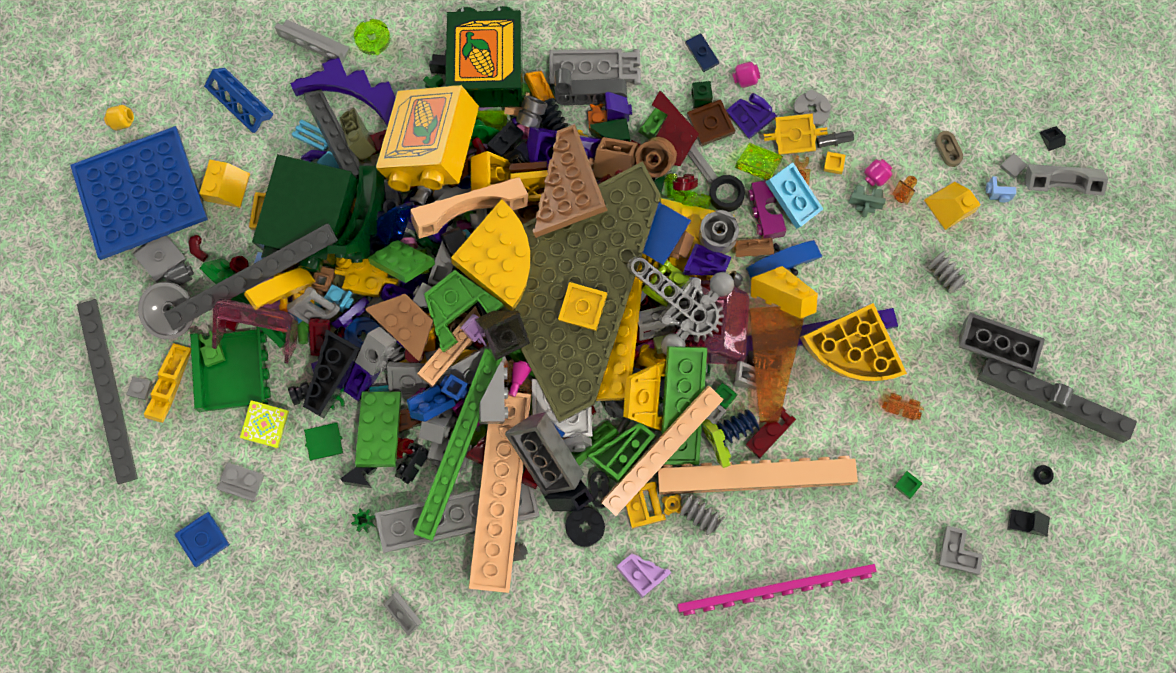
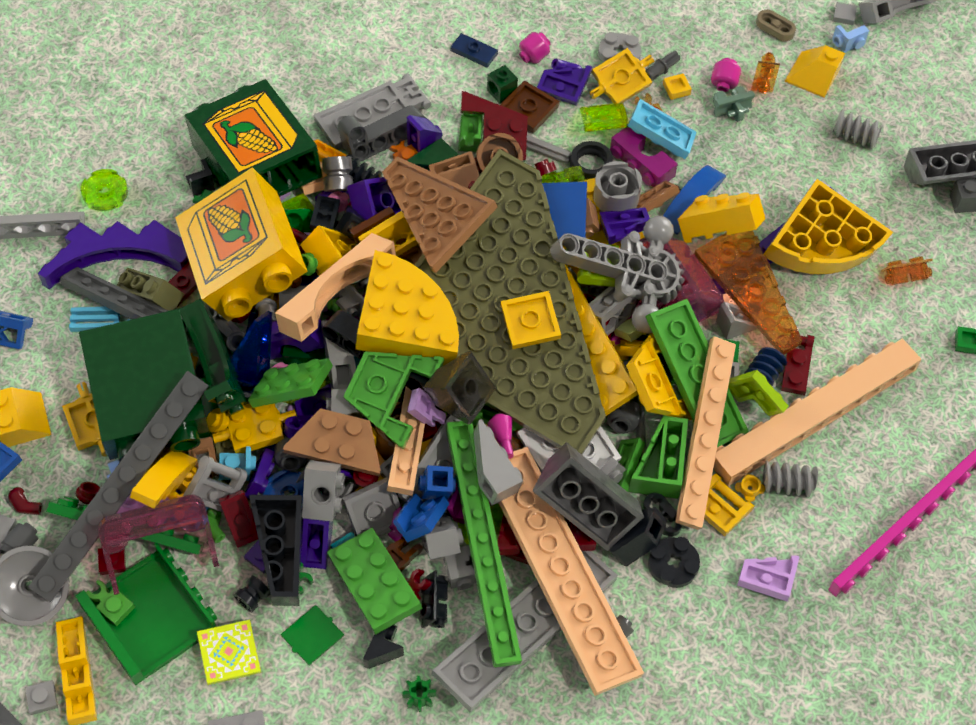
camera: 35 degrees left, 15 degrees down
(467, 176) = (310, 262): none -> bright green plate

